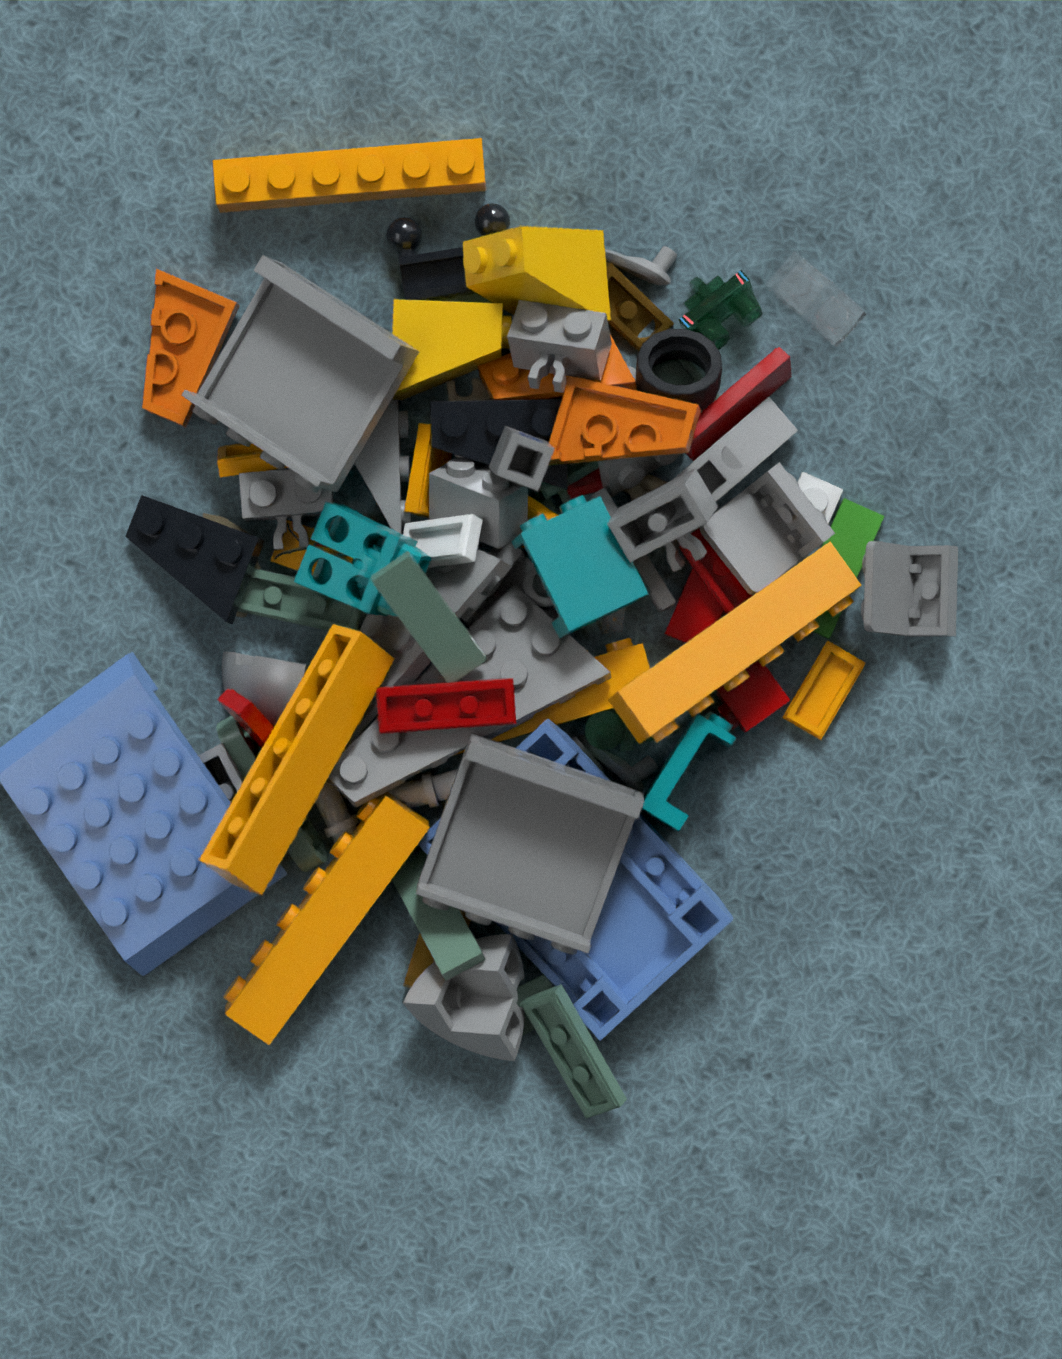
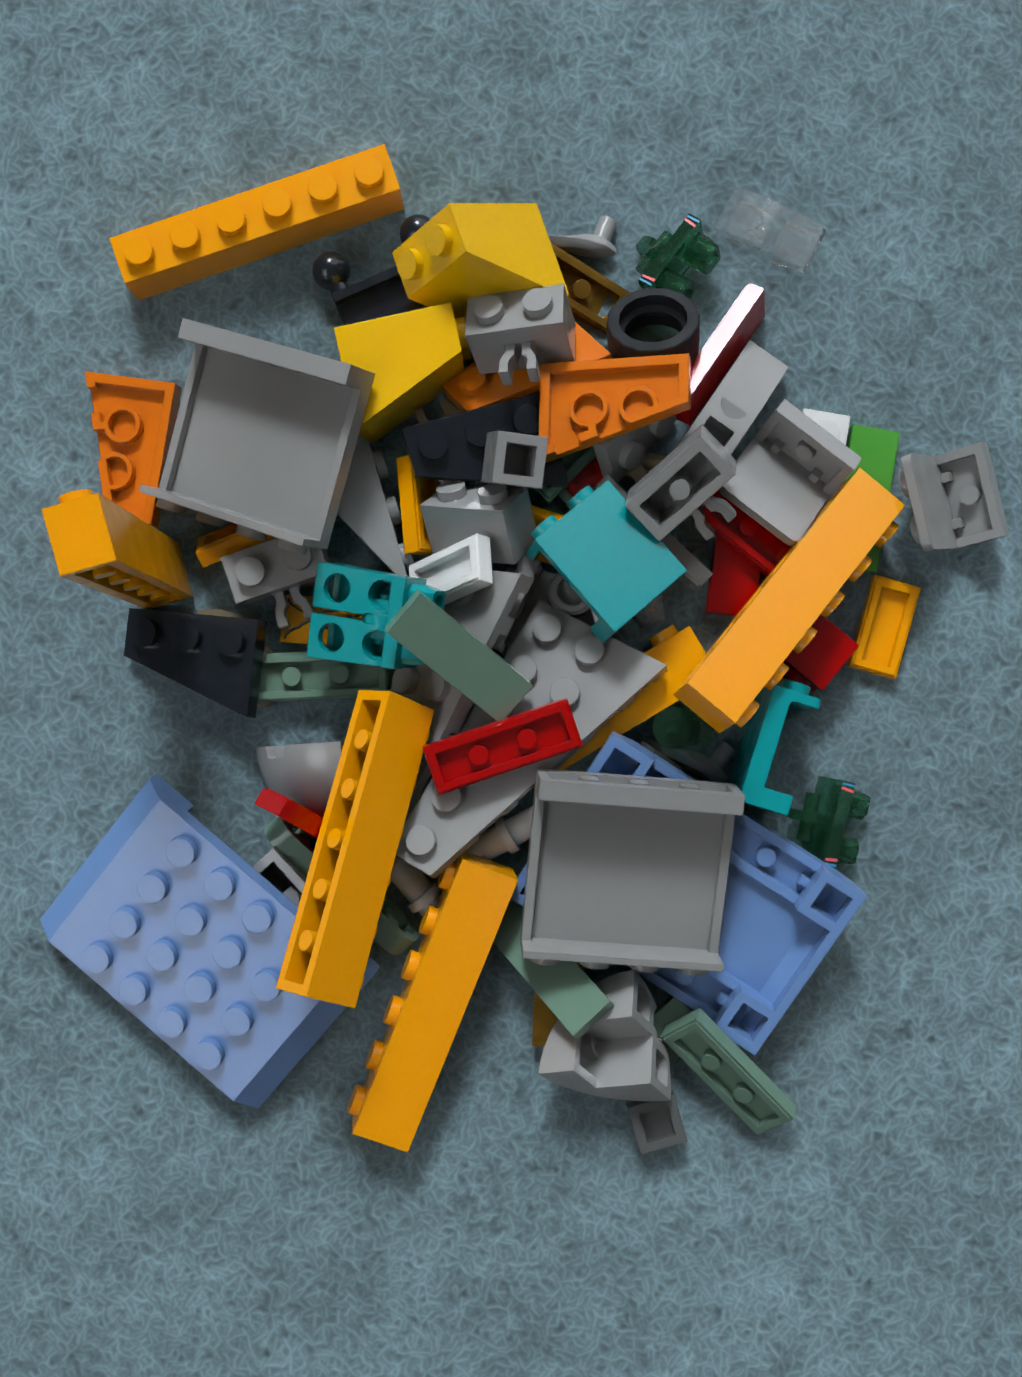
camera: 15 degrees left, 0 degrees up
(164, 456) = (115, 551): none -> light orange brick
(497, 1082) = (656, 1124): none -> dark grey plate
(719, 849) = (825, 820): none -> clear green hips

